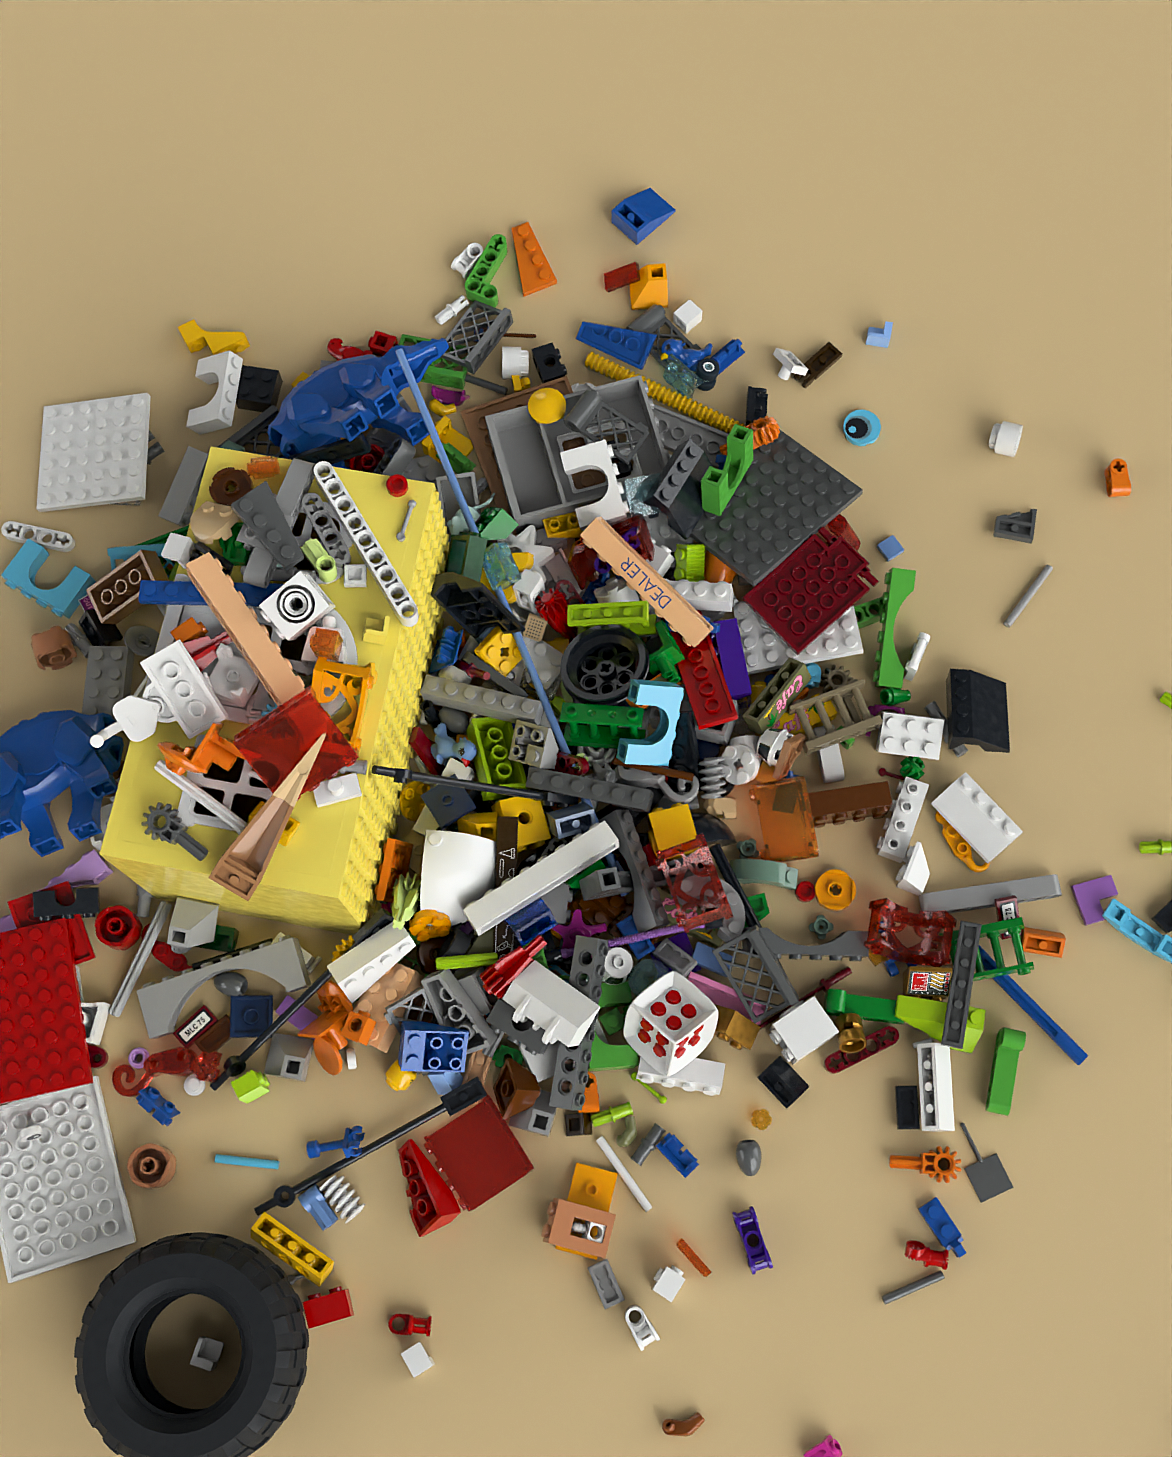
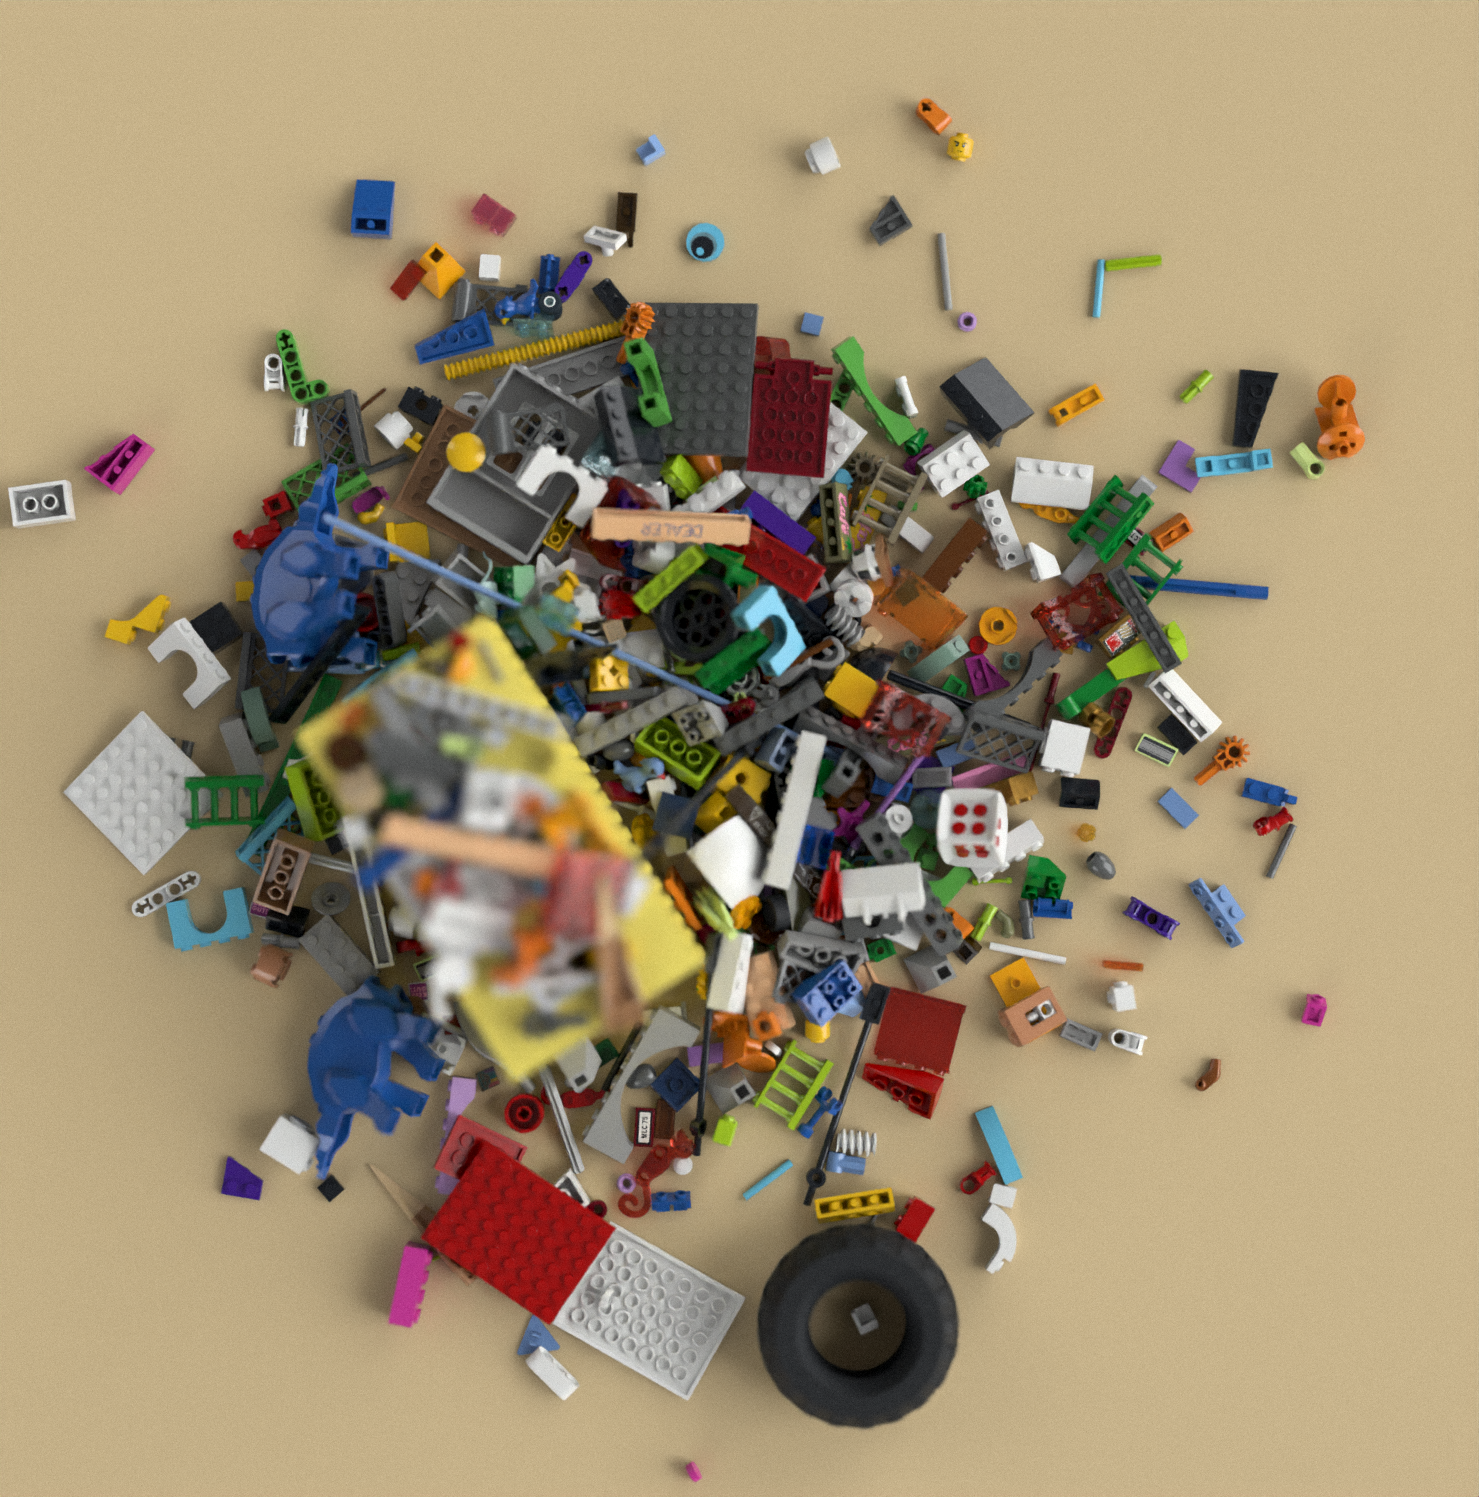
camera: 45 degrees left, 15 degrees up
(47, 904) = (489, 1119): black arch -> none
(118, 879) = (487, 1078): none -> clear smoke tile
(150, 1178) = (703, 1251): nougat brick -> none
(157, 494) = (214, 784): none -> green fence
(227, 211) = (42, 504): none -> white brick
(307, 231) = (121, 464): none -> dark pink wedge
(353, 1117) = (801, 1100): none -> lime fence
(375, 498) = (454, 668): none -> piece
(394, 1386) = (1007, 1236): none -> white arch
(454, 1314) = (999, 1145): none -> medium azure slope
(459, 462) = (427, 548): bright green hinge -> none
(466, 961) = (796, 913): lime axle -> none
(515, 1089) = (906, 966): reddish brown slope -> none
(532, 263) = (326, 330): orange wing -> none
(538, 558) = (570, 576): none -> yellow slope
(690, 1123) = (1042, 879): none -> green slope
(724, 285) = (493, 214): none -> clear pink piece
(742, 369) = (573, 275): none -> dark purple piece
(789, 918) = (983, 675): none -> magenta wing
(818, 1288) = (1221, 909): none -> medium blue bracket
(855, 1169) = (1177, 808): none -> medium blue tile
(878, 1104) = (1156, 749): none -> slope
(986, 1175) = (1268, 731): dark grey piece -> none
(1002, 898) = (1122, 530): none -> green fence
(1003, 1071) = (1220, 649): bright green beam -> none
(1017, 641) = (967, 315): none -> lavender plate
(1048, 778) = (1077, 404): none -> light orange plate
(1119, 517) = (960, 147): none -> yellow head
(1142, 708) = (1098, 288): none -> medium azure bar

